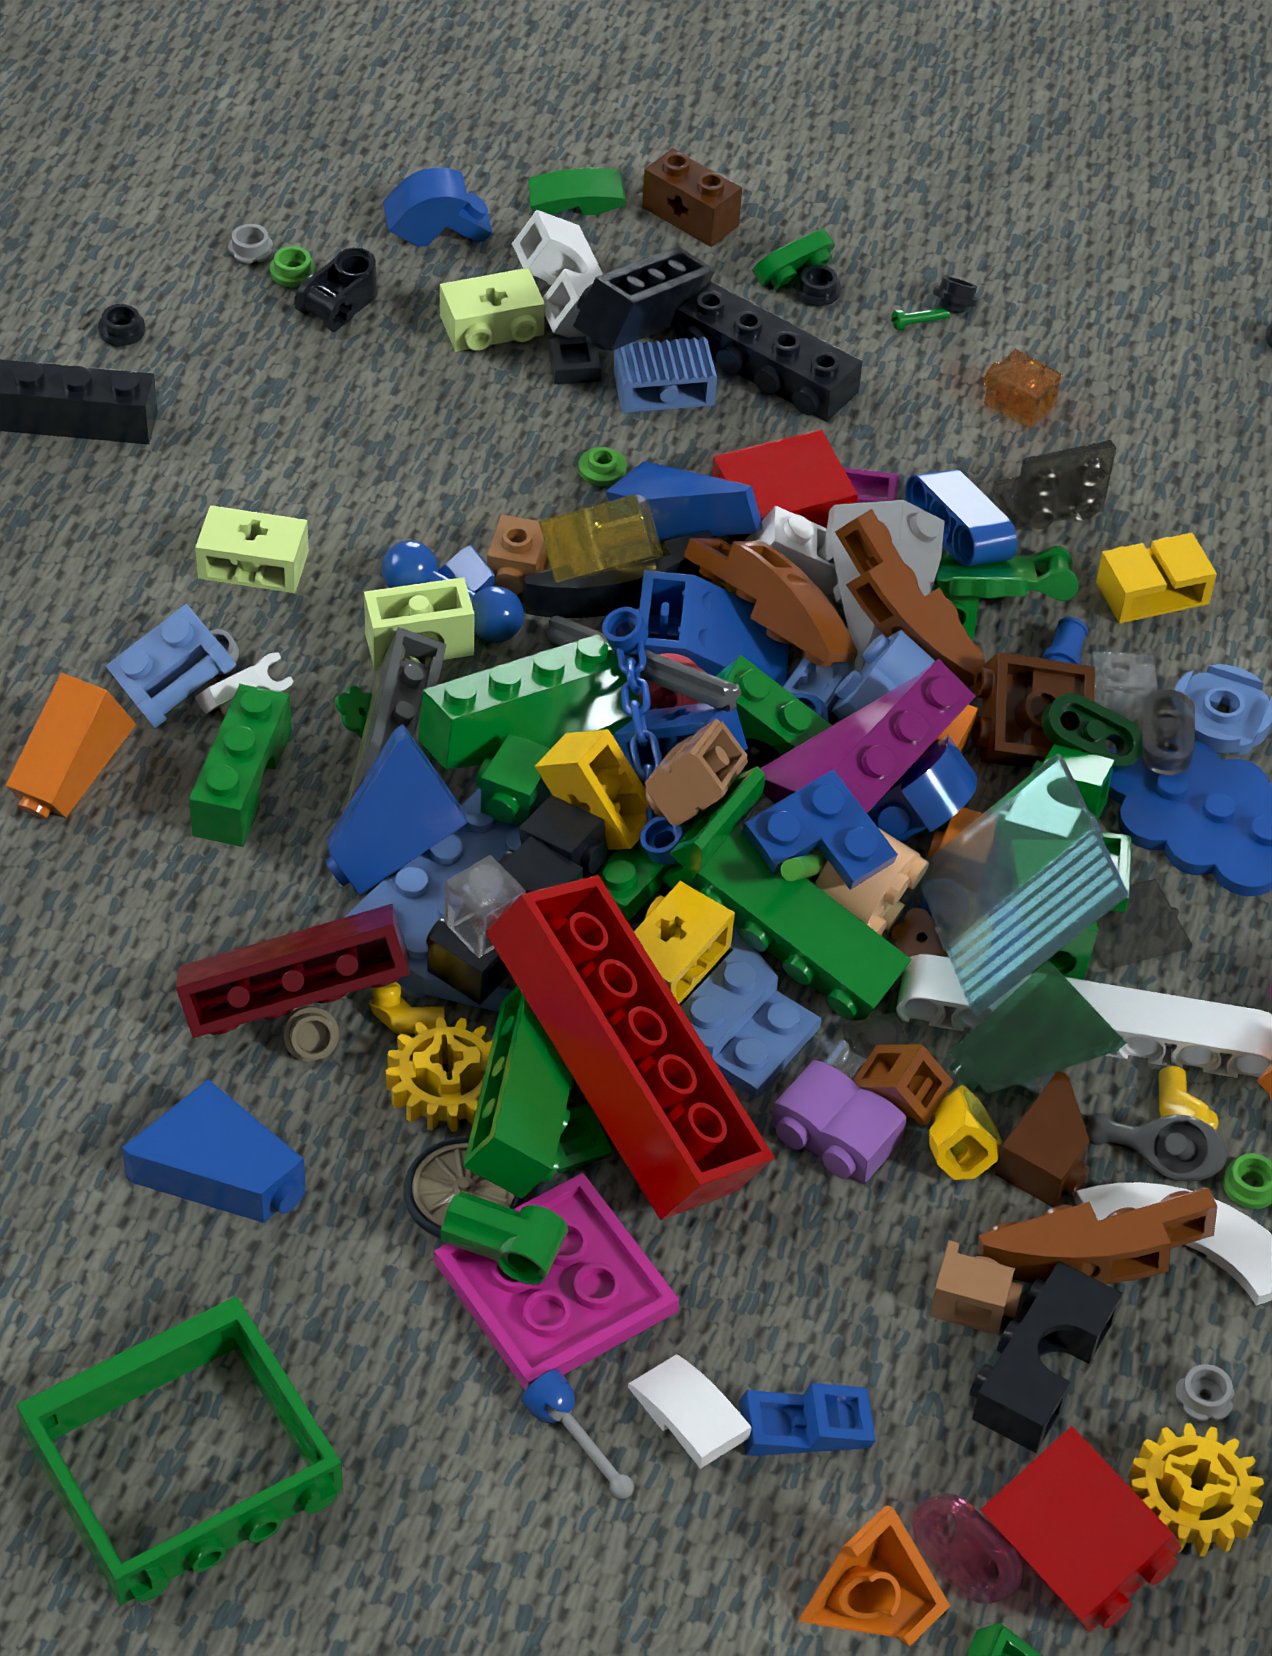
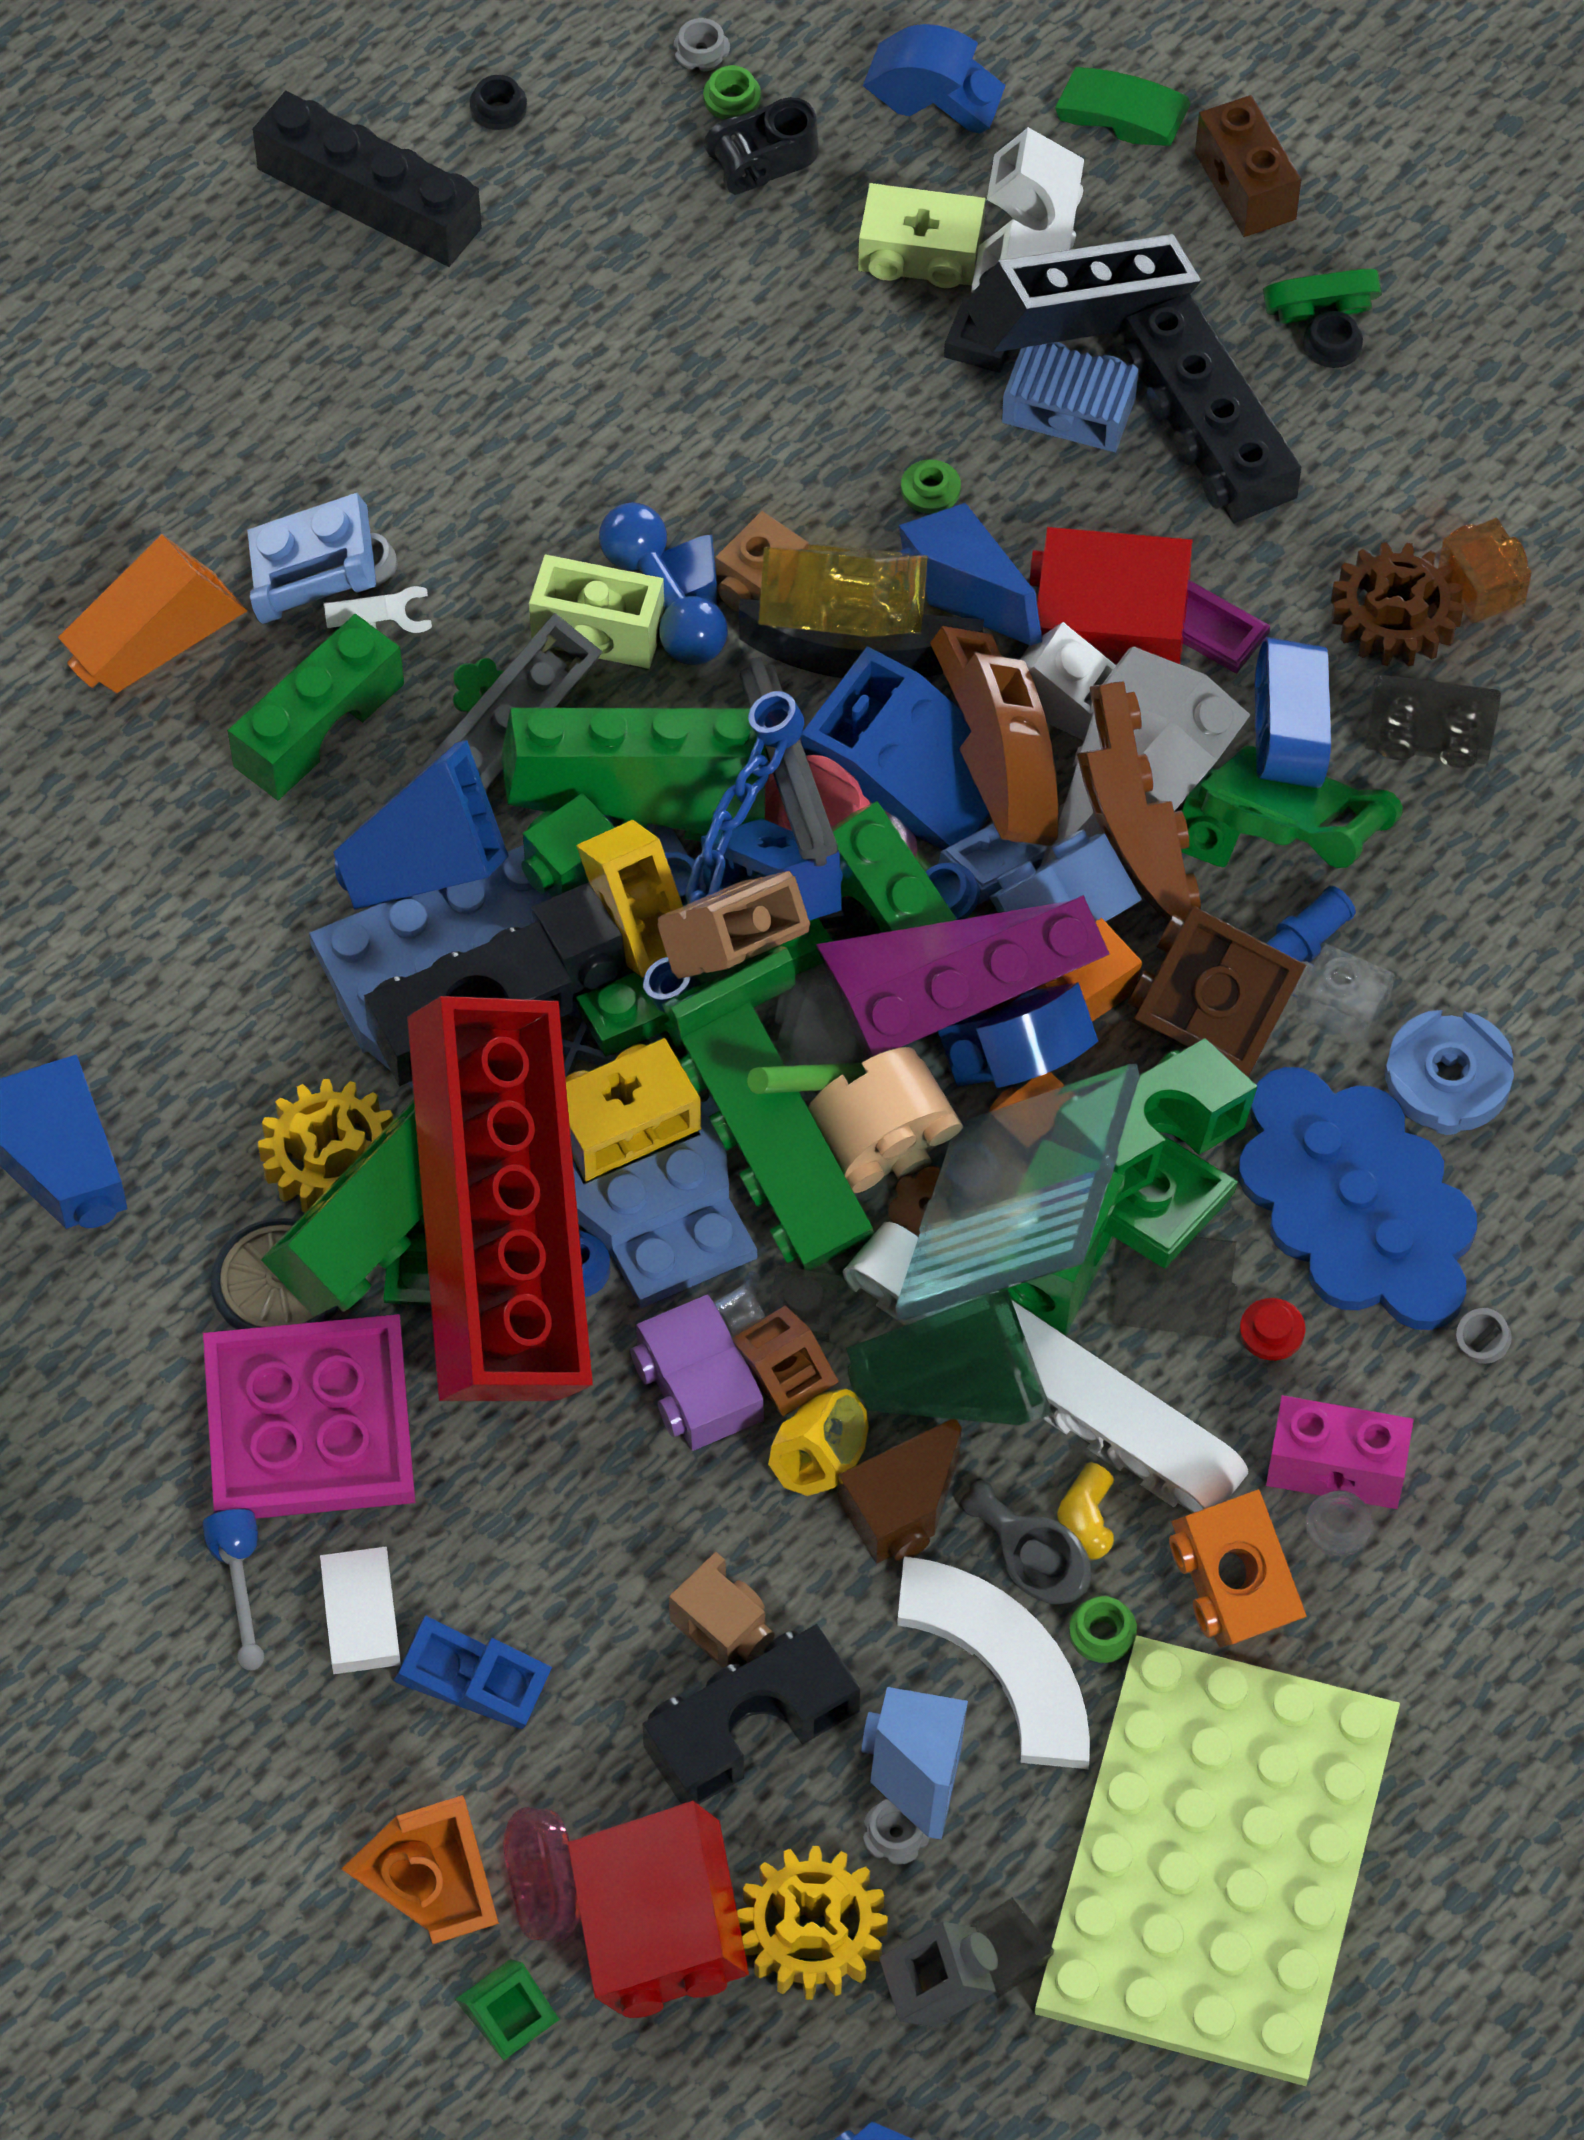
camera: 30 degrees right, 10 degrees up
(252, 549) = (477, 446): yellowish green brick -> none
(292, 971) = (224, 970): dark red brick -> none
(310, 1033) = (220, 1044): dark tan plate -> none
(398, 1014) = (325, 1059): yellow arm -> none
(477, 900) = (421, 974): clear brick -> none
(519, 1241) = (278, 1360): green piece -> none
(826, 818) = (837, 1028): blue plate -> none
(902, 319) = (1432, 424): green piece -> none
(956, 294) = (1492, 411): black plate -> none
(978, 429) = (1397, 604): none -> reddish brown gear
(1091, 728) = (1256, 1041): dark green plate -> none
(1111, 1250) = (865, 1627): dark orange slope -> none
(1156, 579) = (1477, 877): yellow piece -> none
(1167, 732) = (1345, 1080): clear smoke plate -> none
(1197, 1326) = (916, 1754): none -> medium blue slope
(1223, 926) = (1272, 1329): none -> red plate

